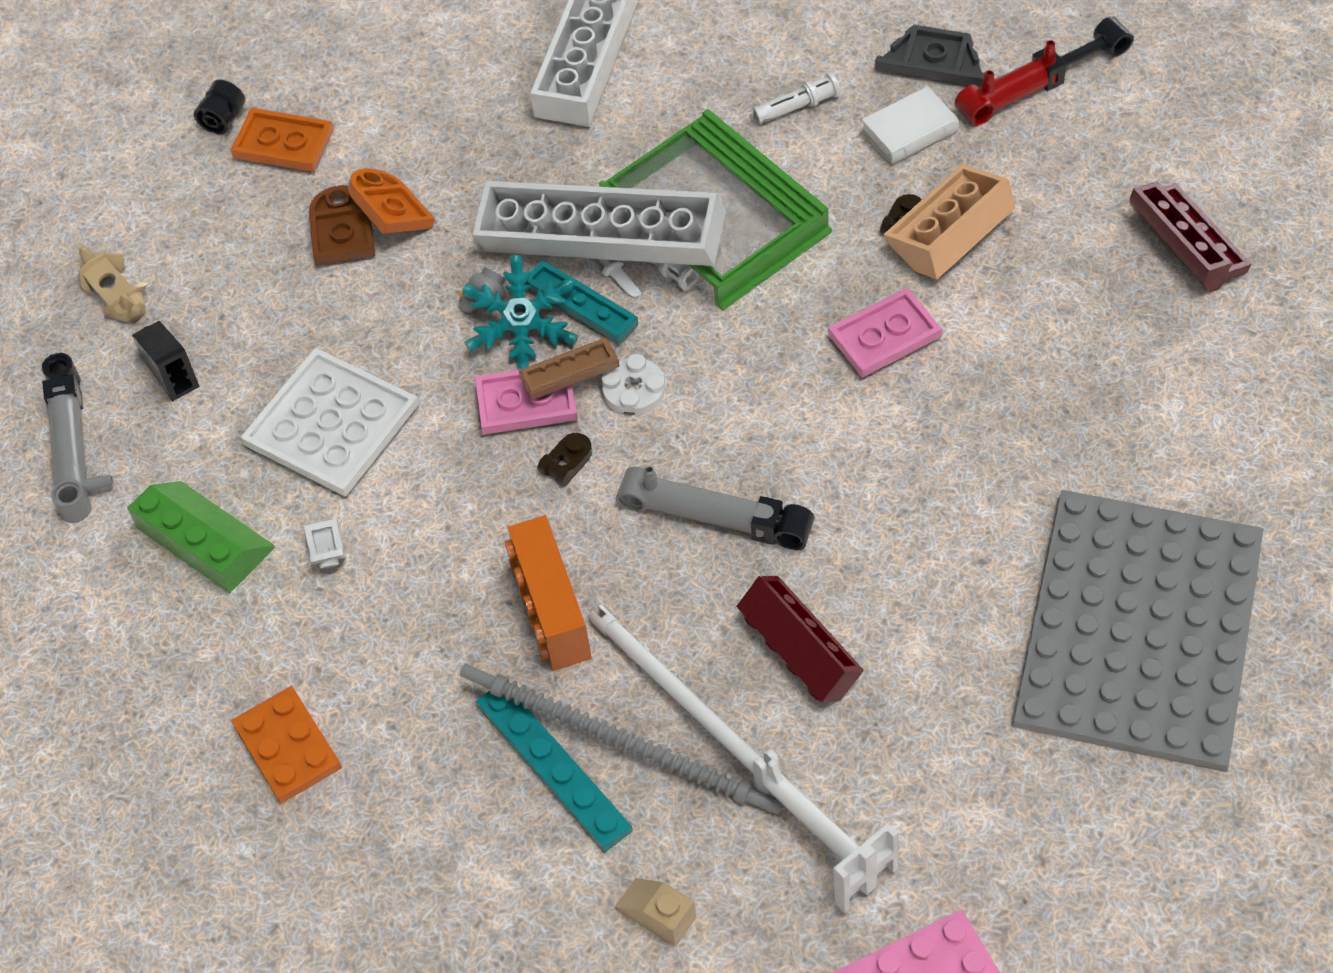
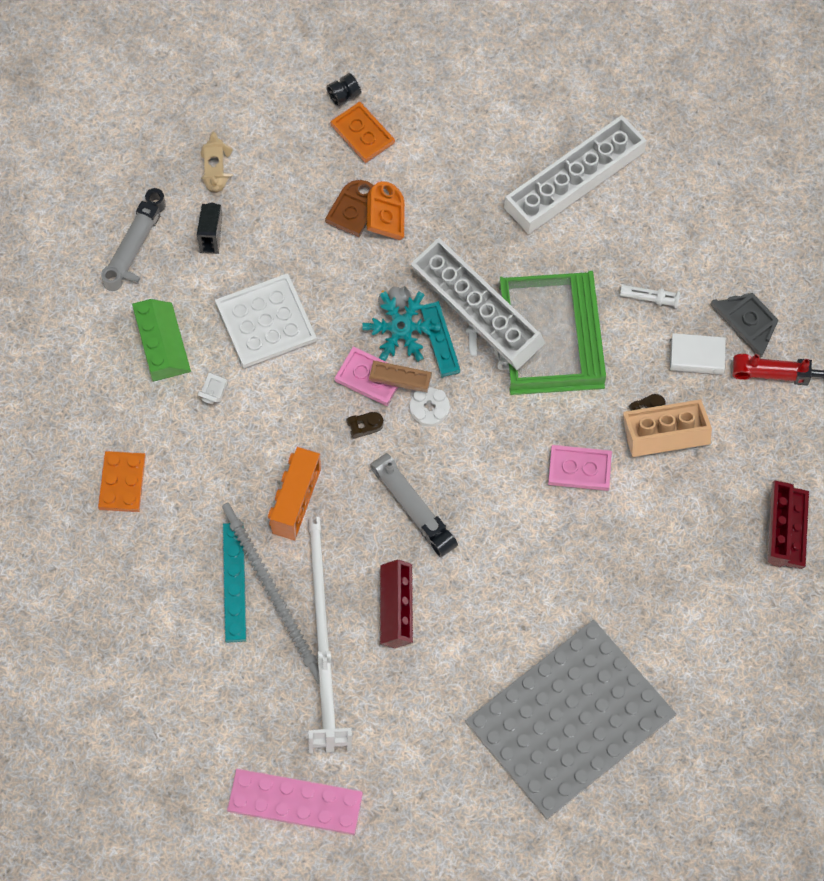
camera: 30 degrees right, 10 degrees up
(658, 909) = (225, 688): tan slope -> none

